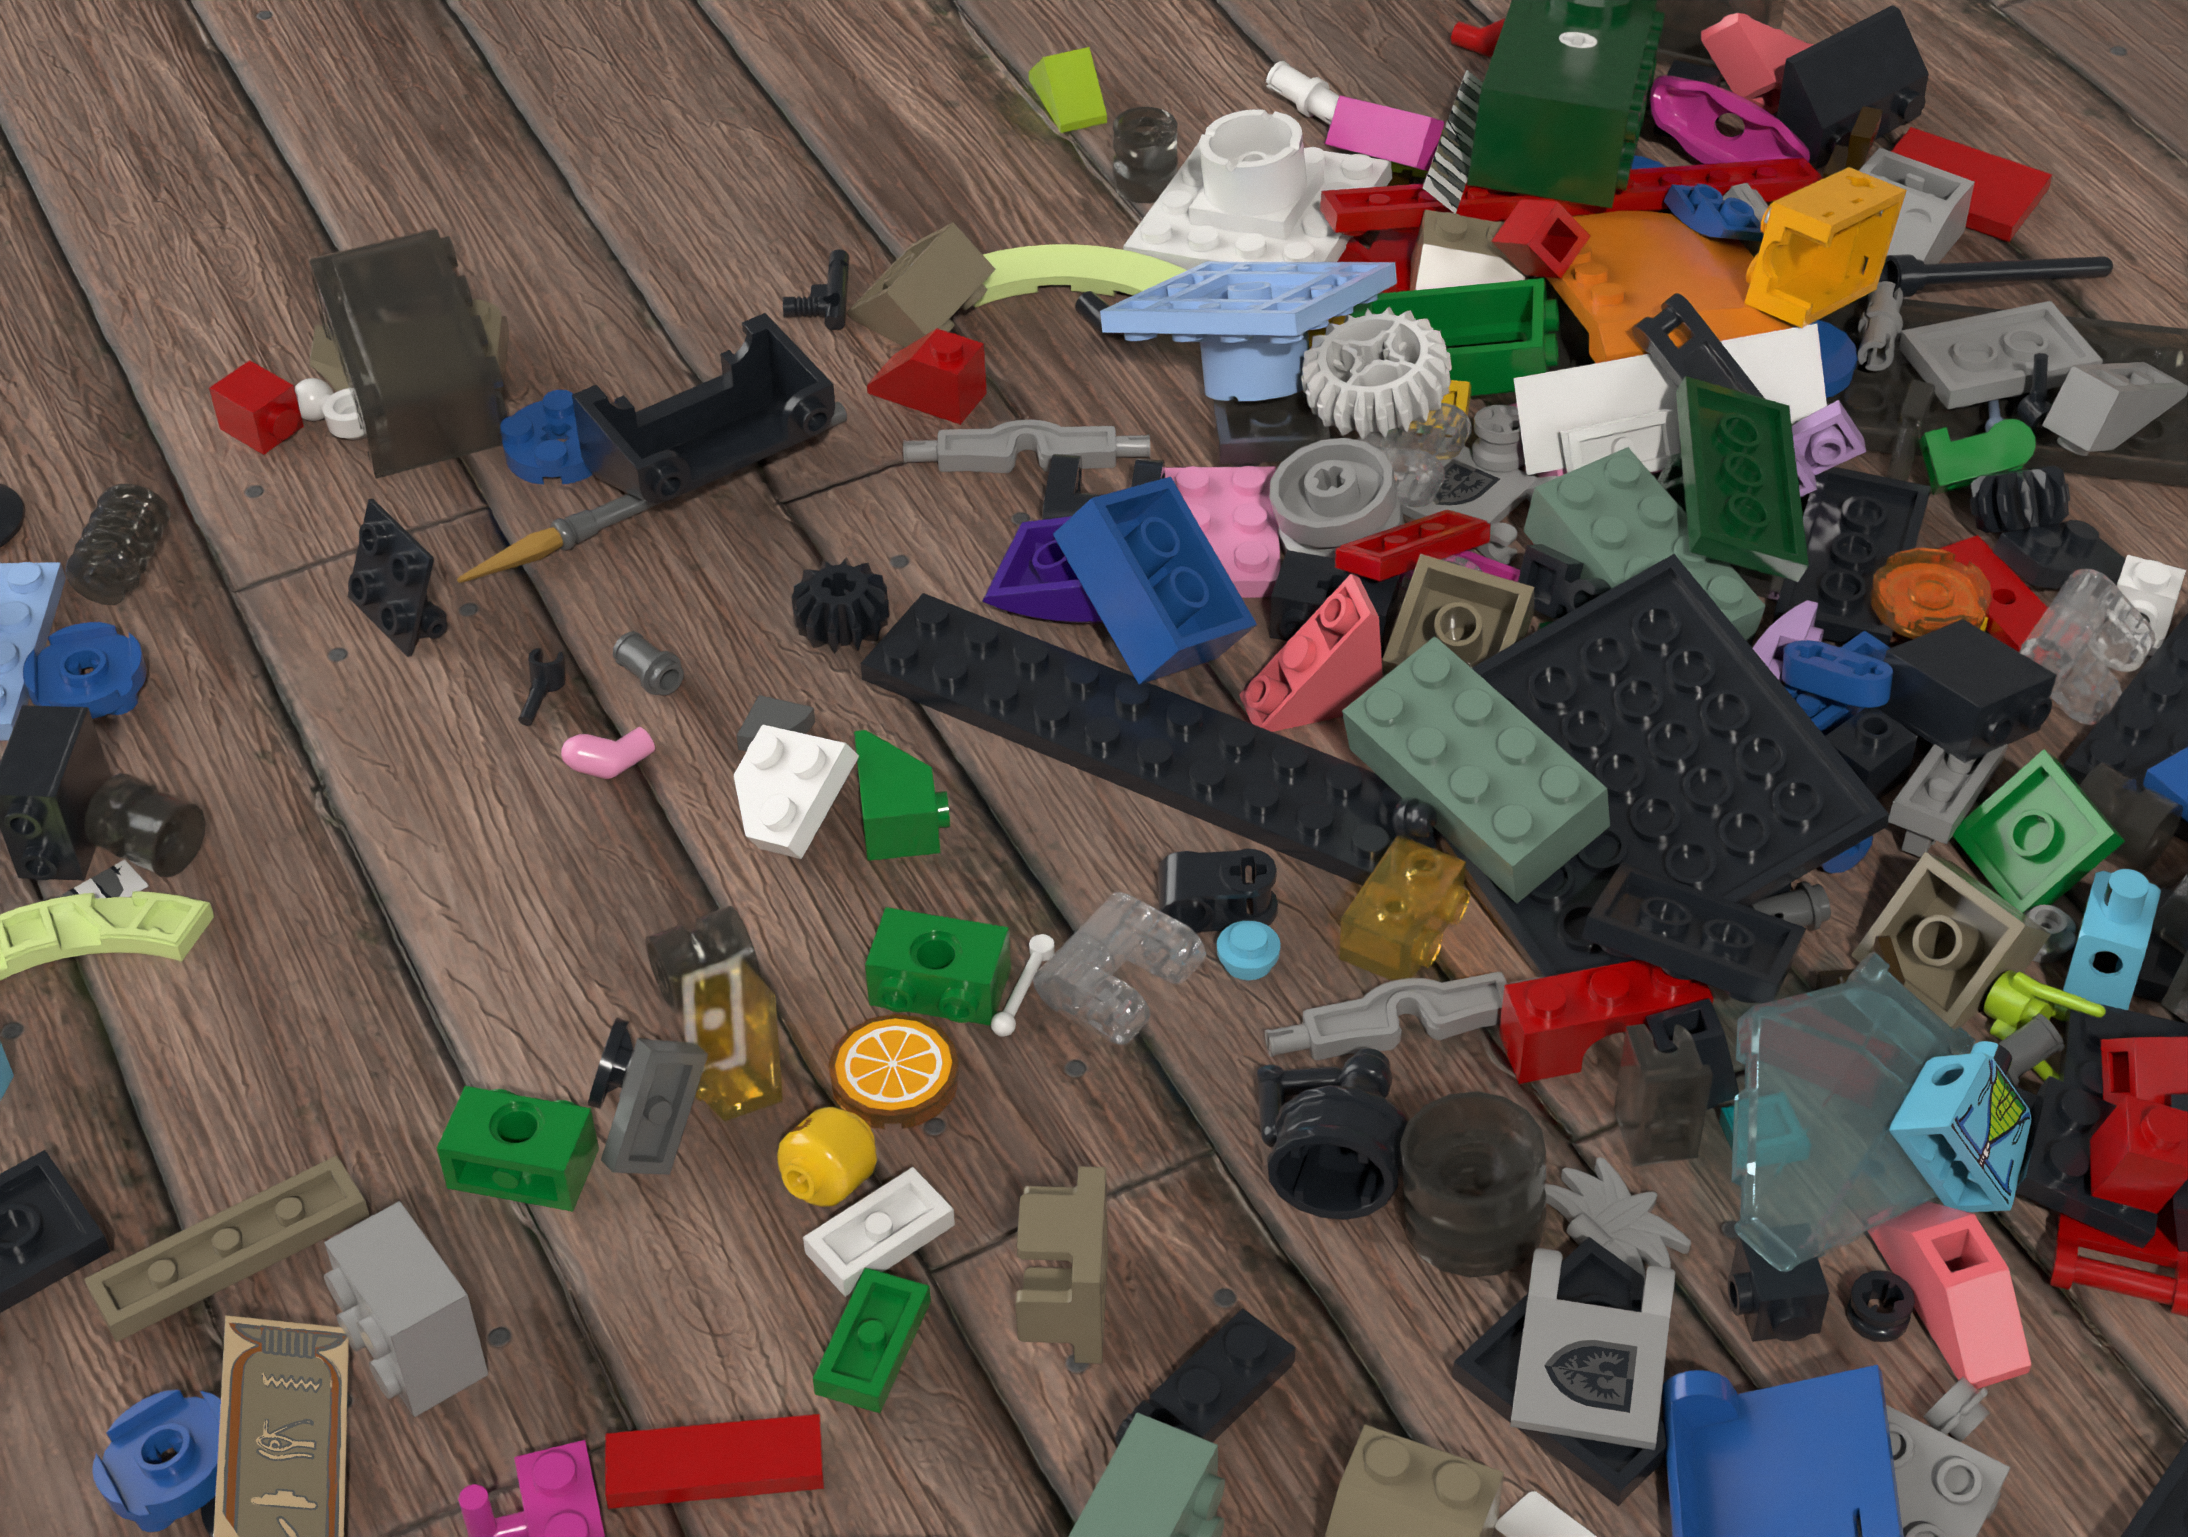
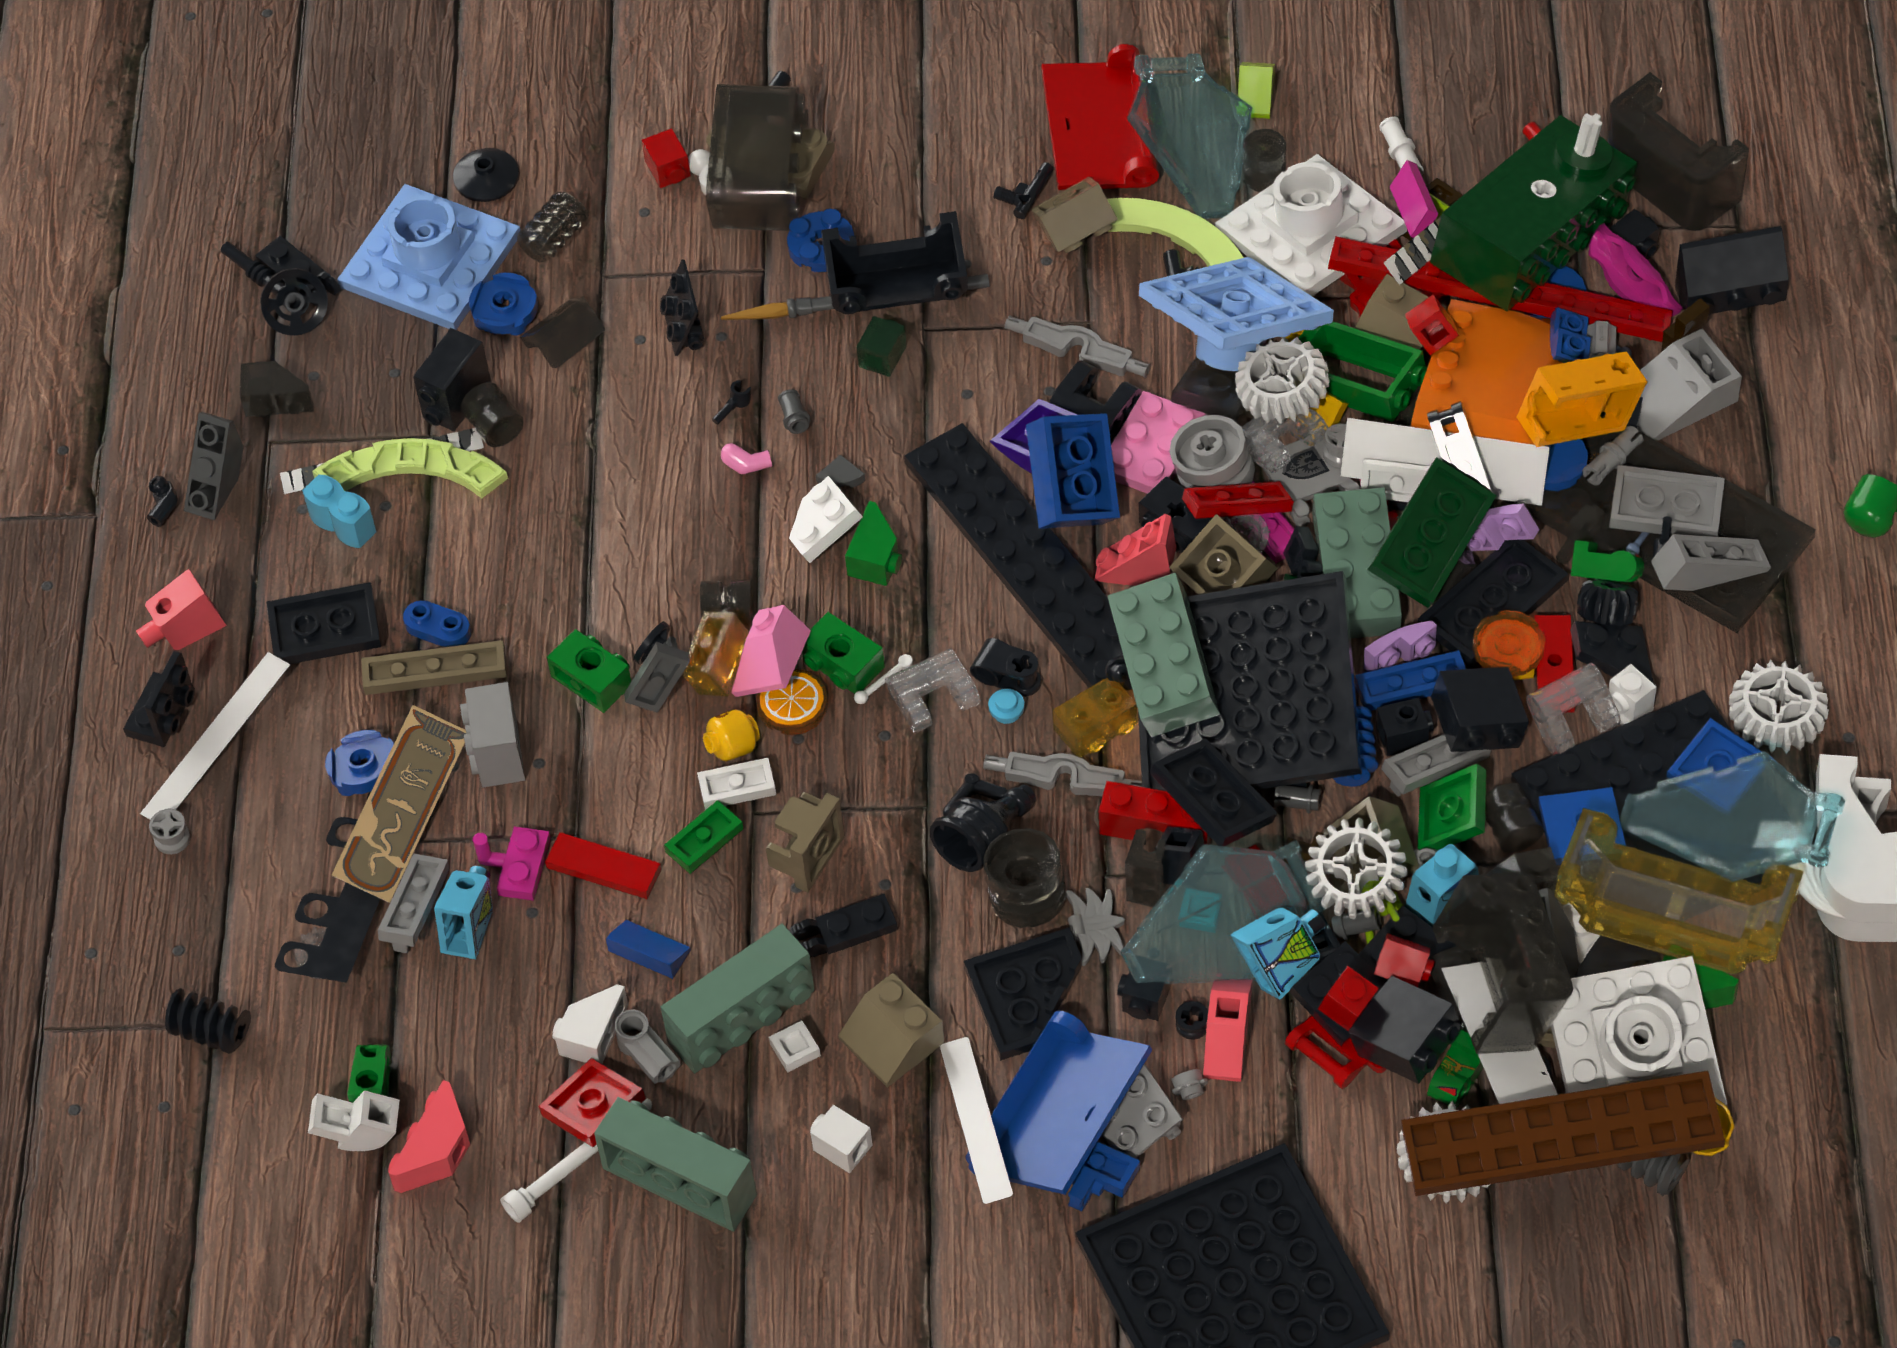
camera: 30 degrees right, 10 degrees up
(192, 1179) = (434, 624): none -> blue plate
(209, 676) = (564, 331): none -> clear smoke panel
(736, 535) = (881, 346): none -> clear green brick
(826, 1000) = (770, 651): none -> bright pink slope
(840, 605) = (912, 414): black gear -> none
(882, 180) = (1099, 137): none -> red door
(935, 375) = (1050, 278): red slope -> none
(1025, 147) = (1192, 130): none -> clear light blue windscreen
(1590, 1365) = (1023, 989): light grey flag -> none
(1751, 57) = (1679, 226): coral slope -> none
(1837, 673) = (1412, 672): blue beam -> none
(1912, 273) = (1660, 425): black piece -> none
(1992, 977) = (1370, 871): none -> white gear
(2002, 188) = (1769, 365): red tile -> none

